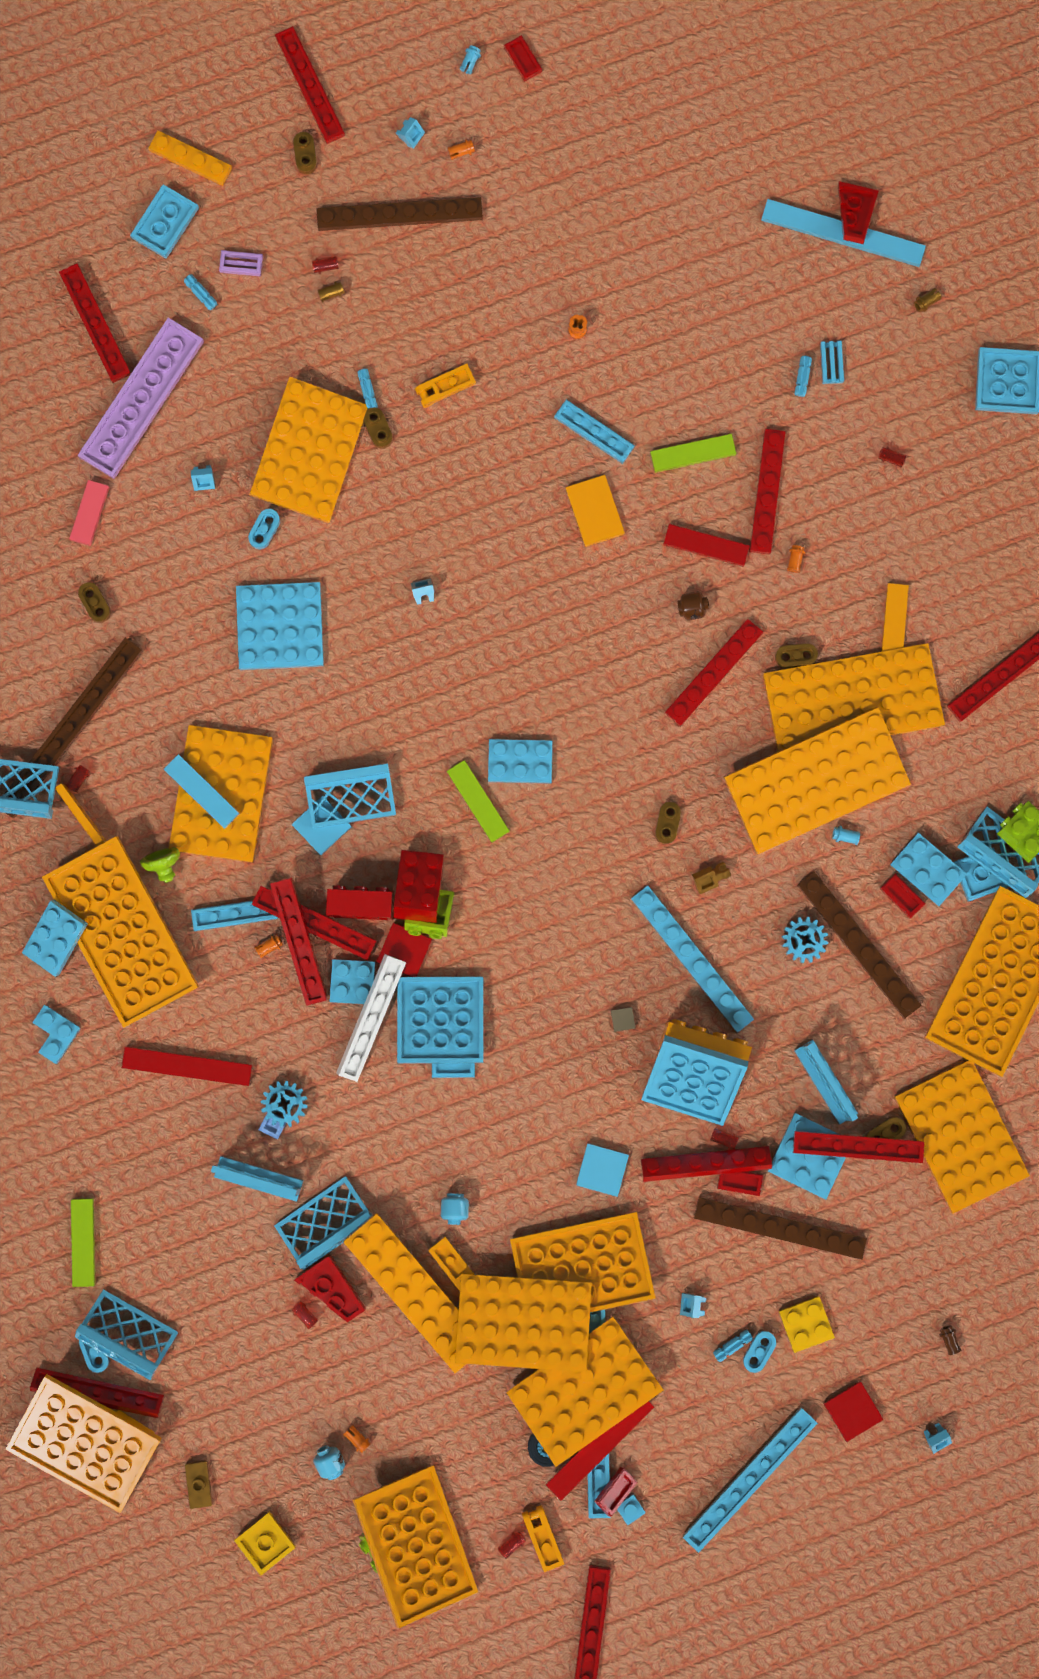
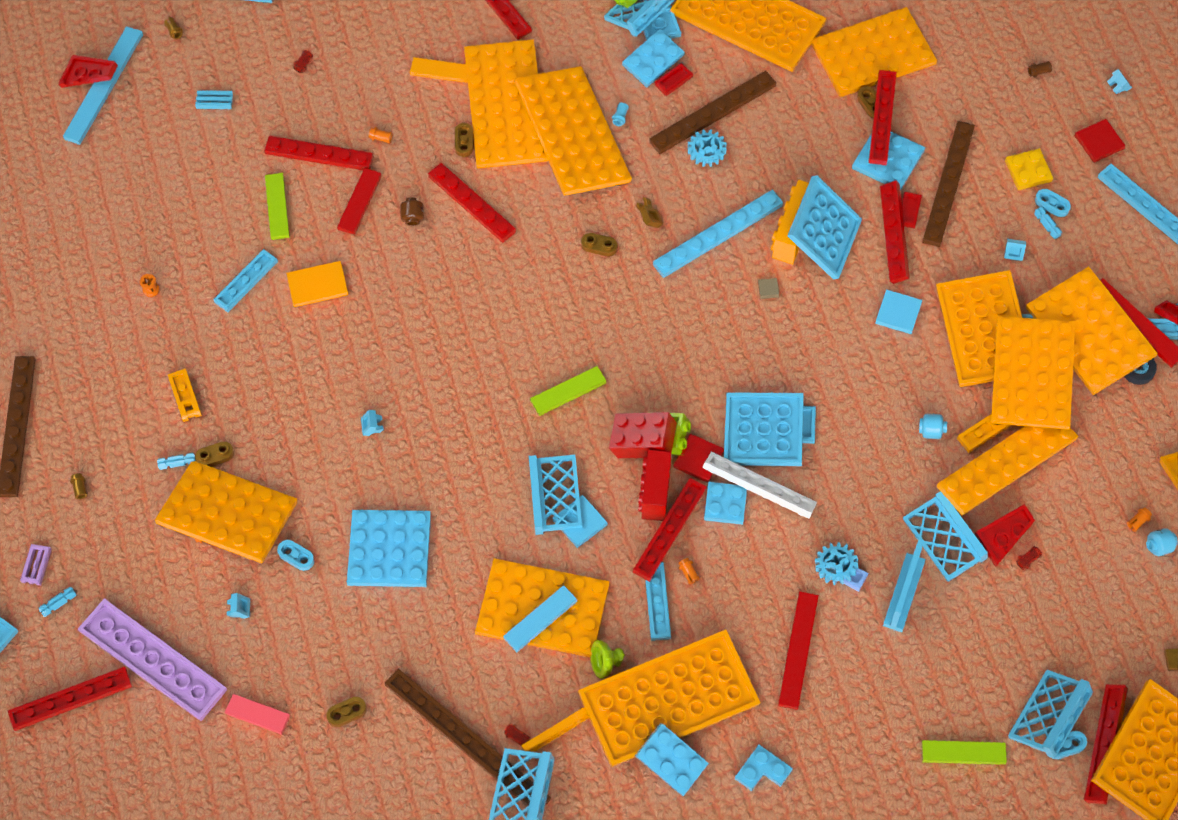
camera: 80 degrees left, 20 degrees down
(298, 941) = (686, 539): red plate -> none
(325, 264) = (52, 490): clear red pin -> none
(520, 761) = (535, 355): medium azure plate -> none
(724, 1138) = (873, 217): clear red pin -> none
(803, 376) = (222, 120): medium azure axle -> none
(826, 1082) = (834, 134): medium azure fence -> none

